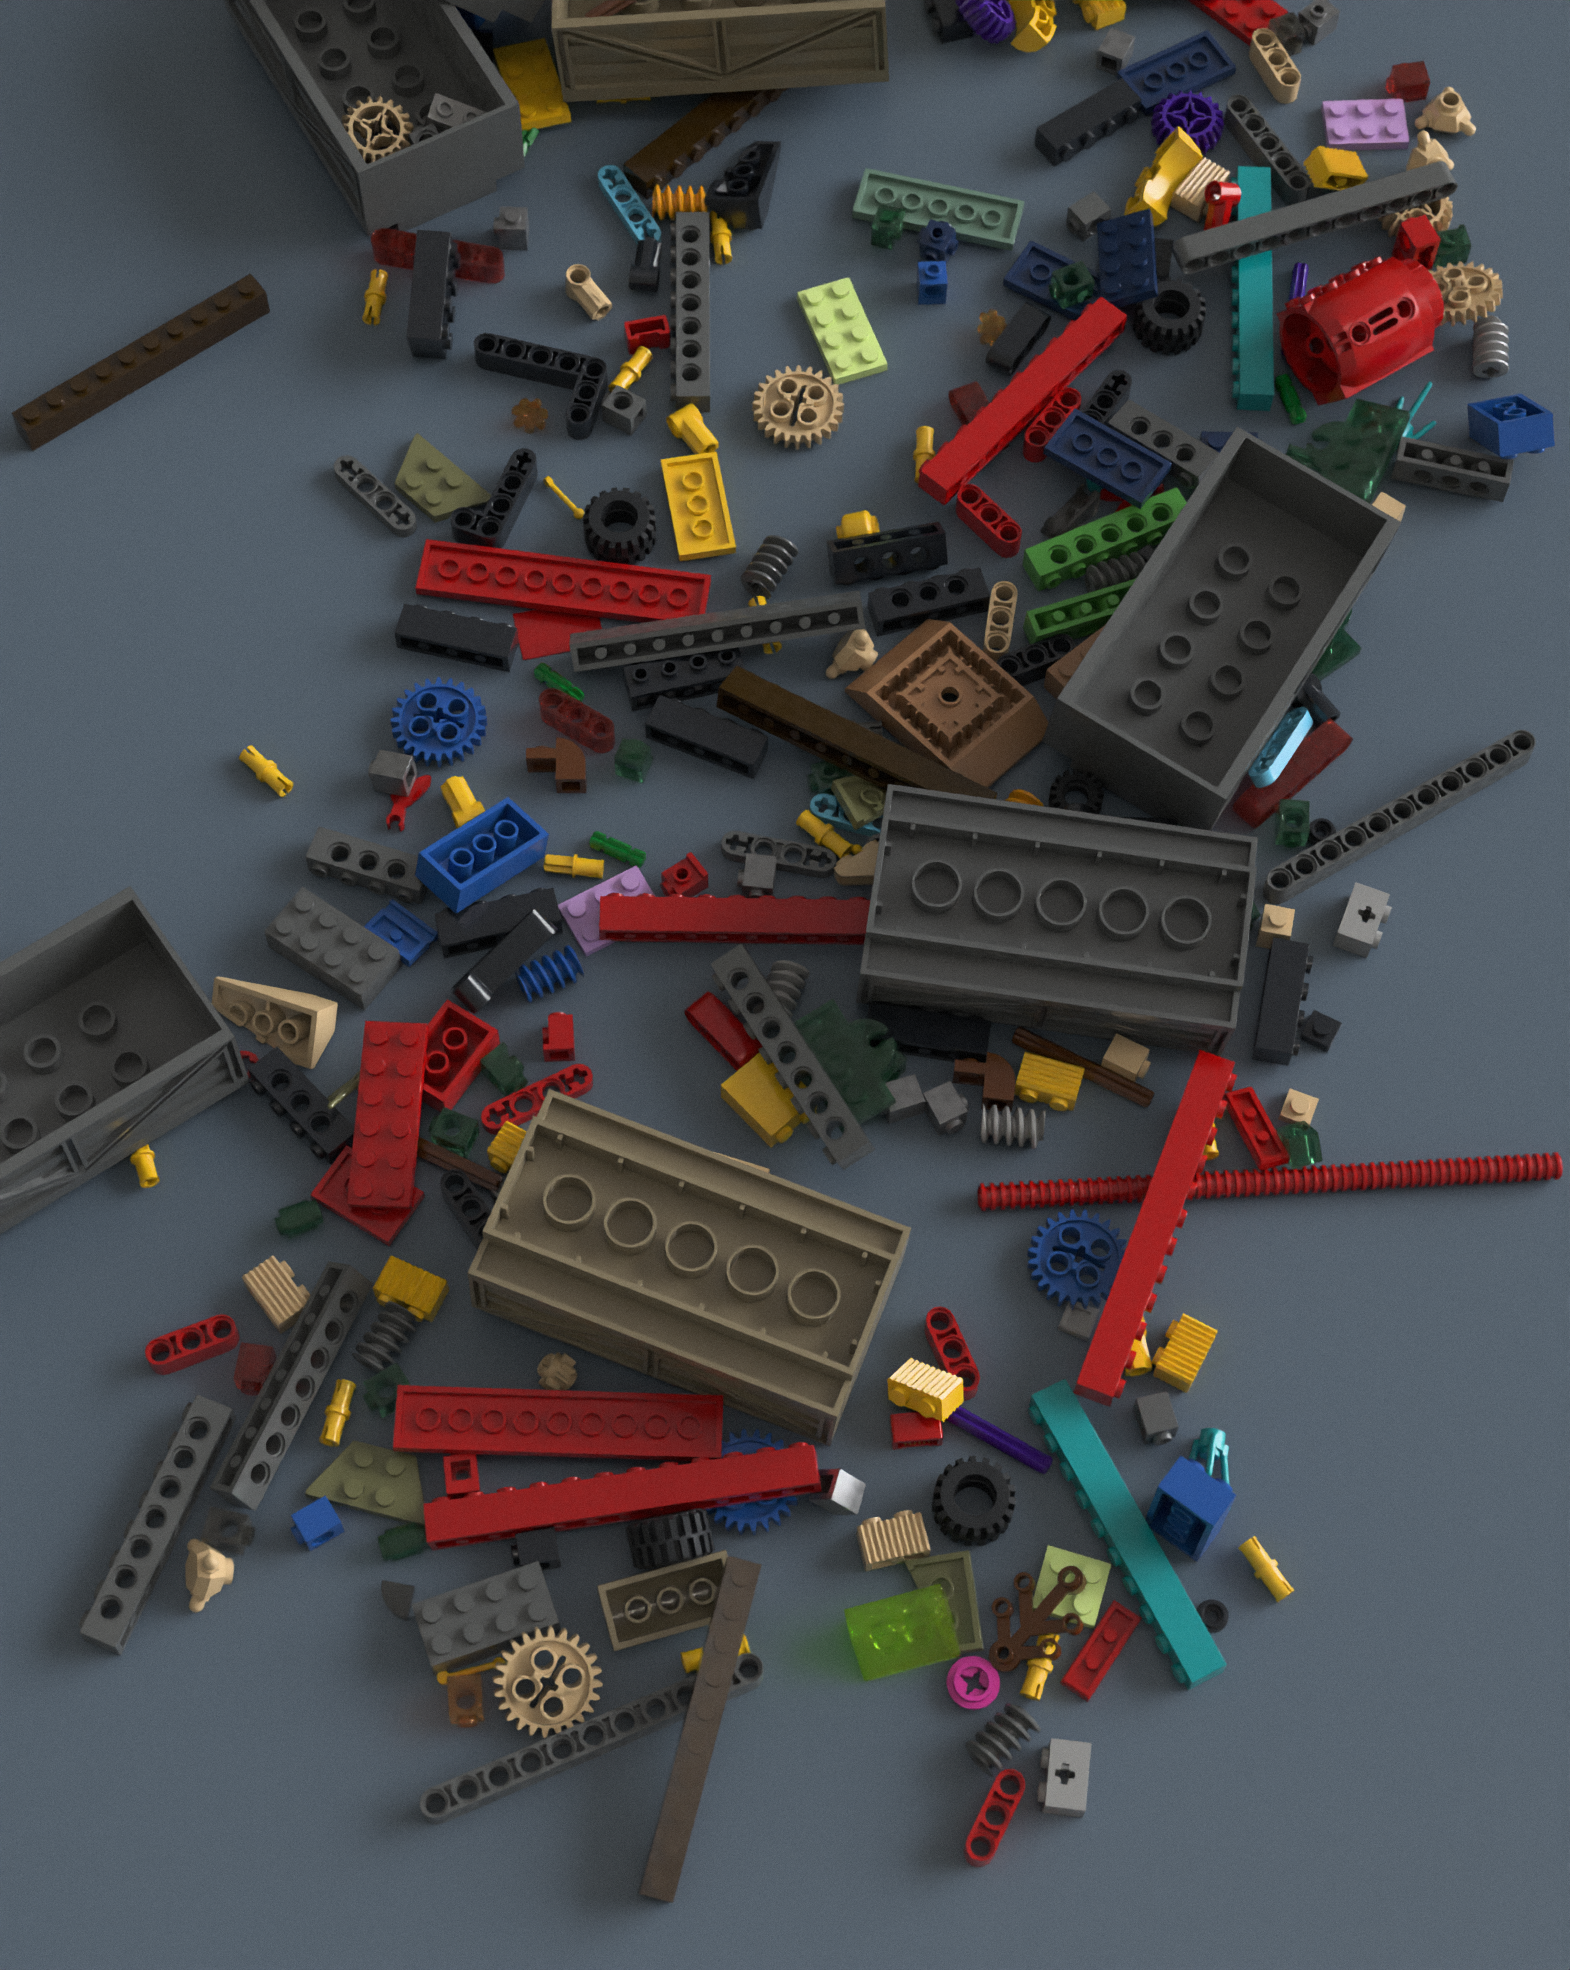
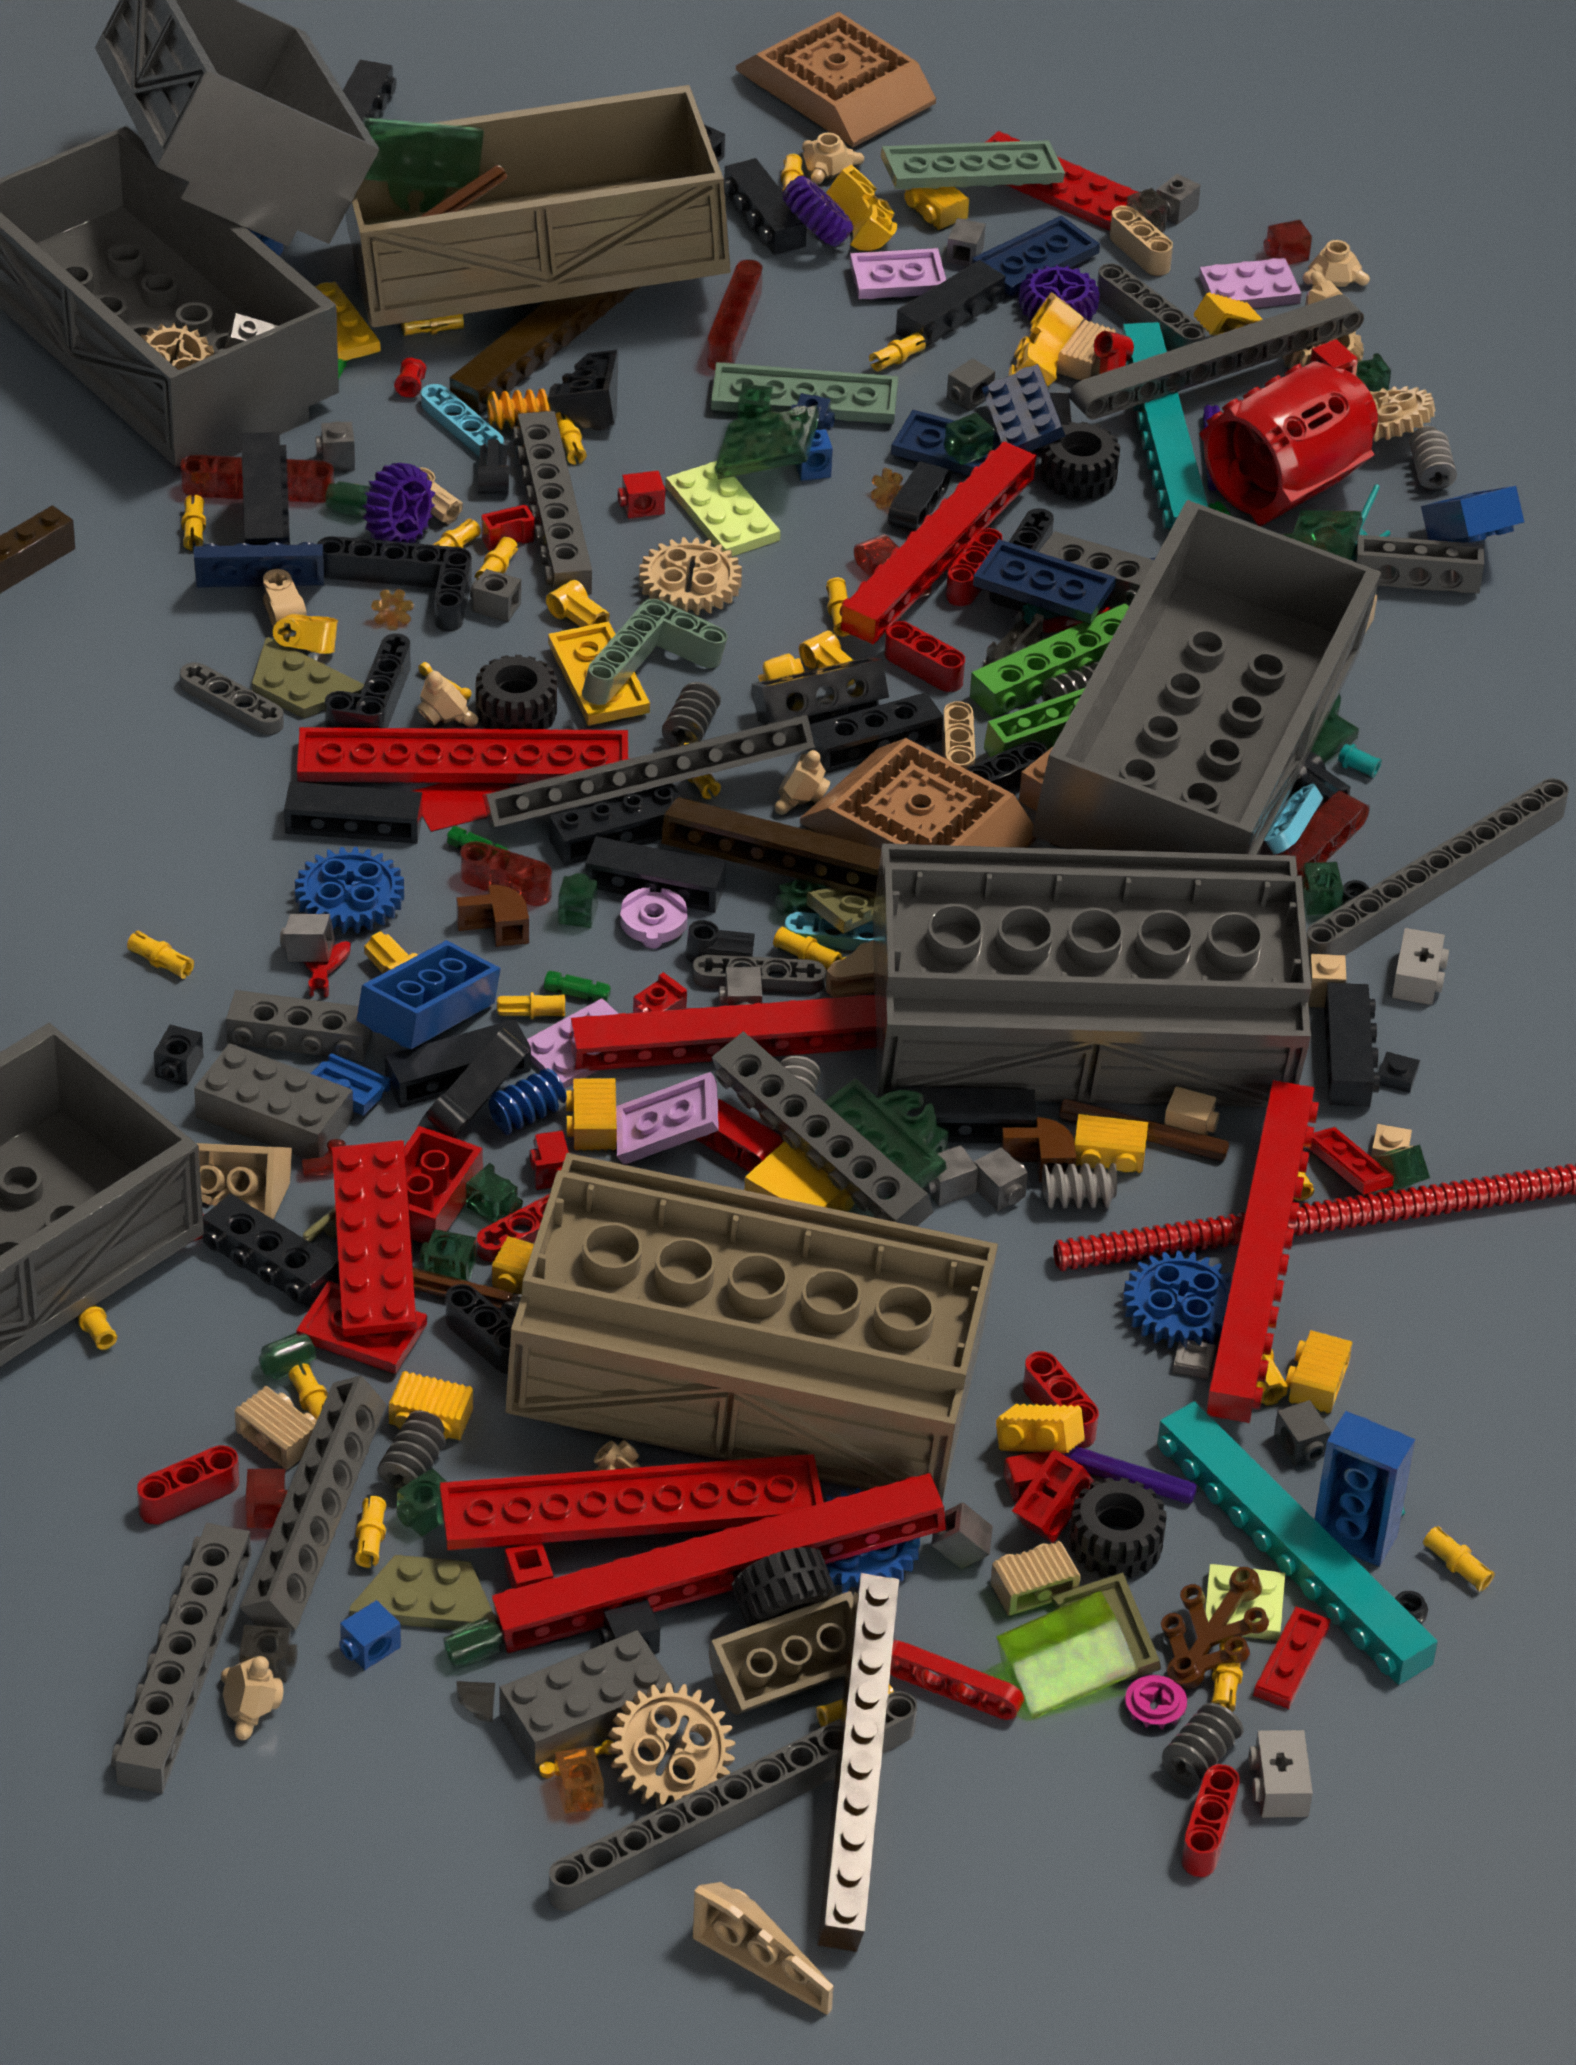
camera: 10 degrees left, 20 degrees down
(261, 873) = (178, 1054): none -> black brick
(313, 1261) = (311, 1394): none -> yellow pin
(374, 1011) = (324, 1164): none -> clear red arm
(426, 359) = (246, 564): none -> dark blue plate
(436, 397) = (281, 596): none -> tan piece
(452, 435) = (312, 633): none -> yellow piece
(514, 286) = (347, 498): none -> clear green brick
(551, 306) = (398, 503): none -> dark purple gear
(556, 526) = (444, 702): none -> tan rock
(572, 1874) = (746, 1935): none -> tan wedge
(591, 155) = (409, 381): none -> red bush
(598, 342) = (461, 535): none -> yellow pin
(605, 992) = (593, 1113): none -> yellow brick
(665, 1011) = (667, 1118): none -> lavender plate
(697, 796) = (653, 930): none -> lavender plate
(750, 819) = (707, 939): none -> black piece
(751, 463) = (651, 626): none -> sand green beam
(772, 310) = (642, 494): none -> red brick
(803, 1639) = (989, 1693): none -> red beam
(890, 270) = (767, 441): none -> clear green plate
(892, 113) = (735, 313): none -> clear red beam
(901, 507) = (823, 651): none -> yellow piece
(922, 1465) = (1051, 1495): none -> red brick
(1029, 170) = (897, 351): none -> yellow pin
(1047, 80) = (896, 273): none -> lavender plate
(1355, 681) = (1359, 760): none -> teal pin

